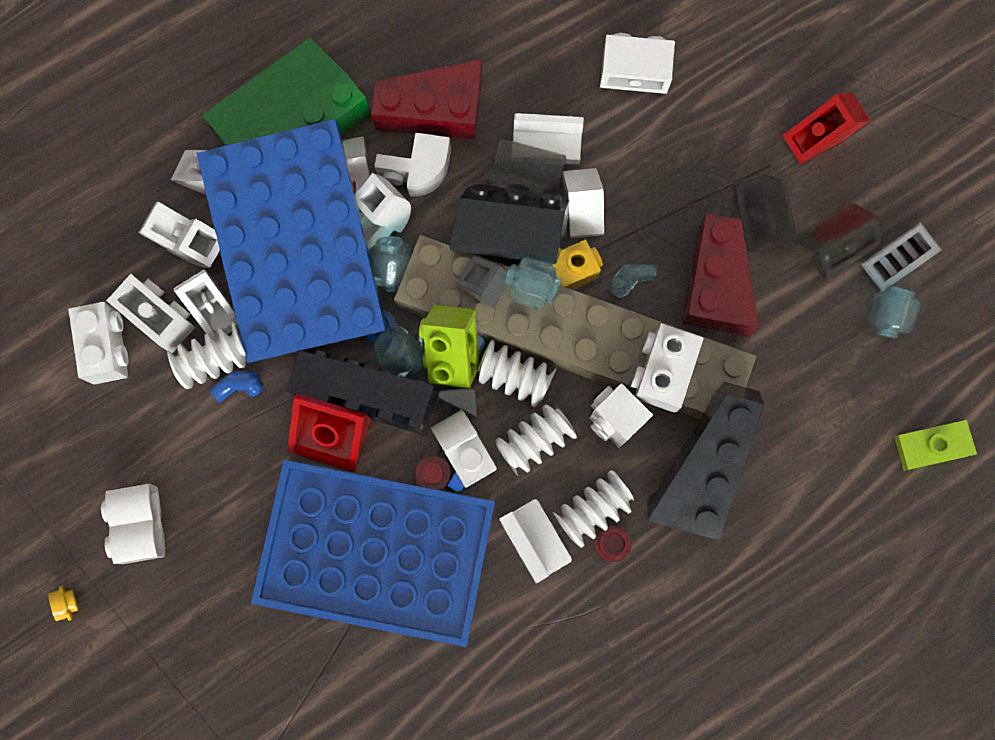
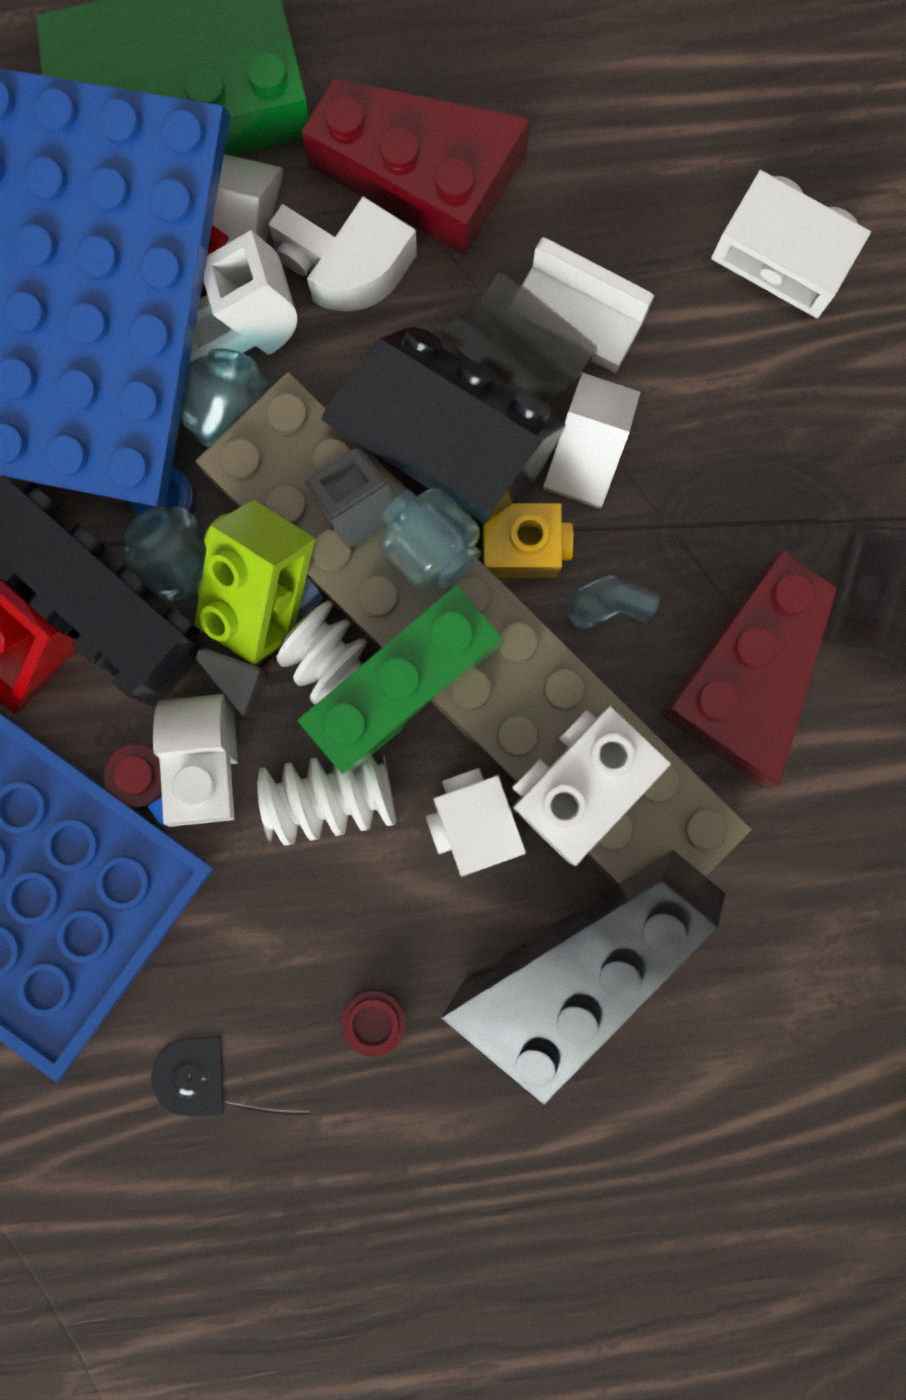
camera: 20 degrees right, 5 degrees up
(531, 617) = (190, 1077): none -> black piece
(535, 540) = (249, 960): white panel -> none
(553, 356) = (401, 680): none -> green arch
(595, 508) = (366, 958): white piece -> none

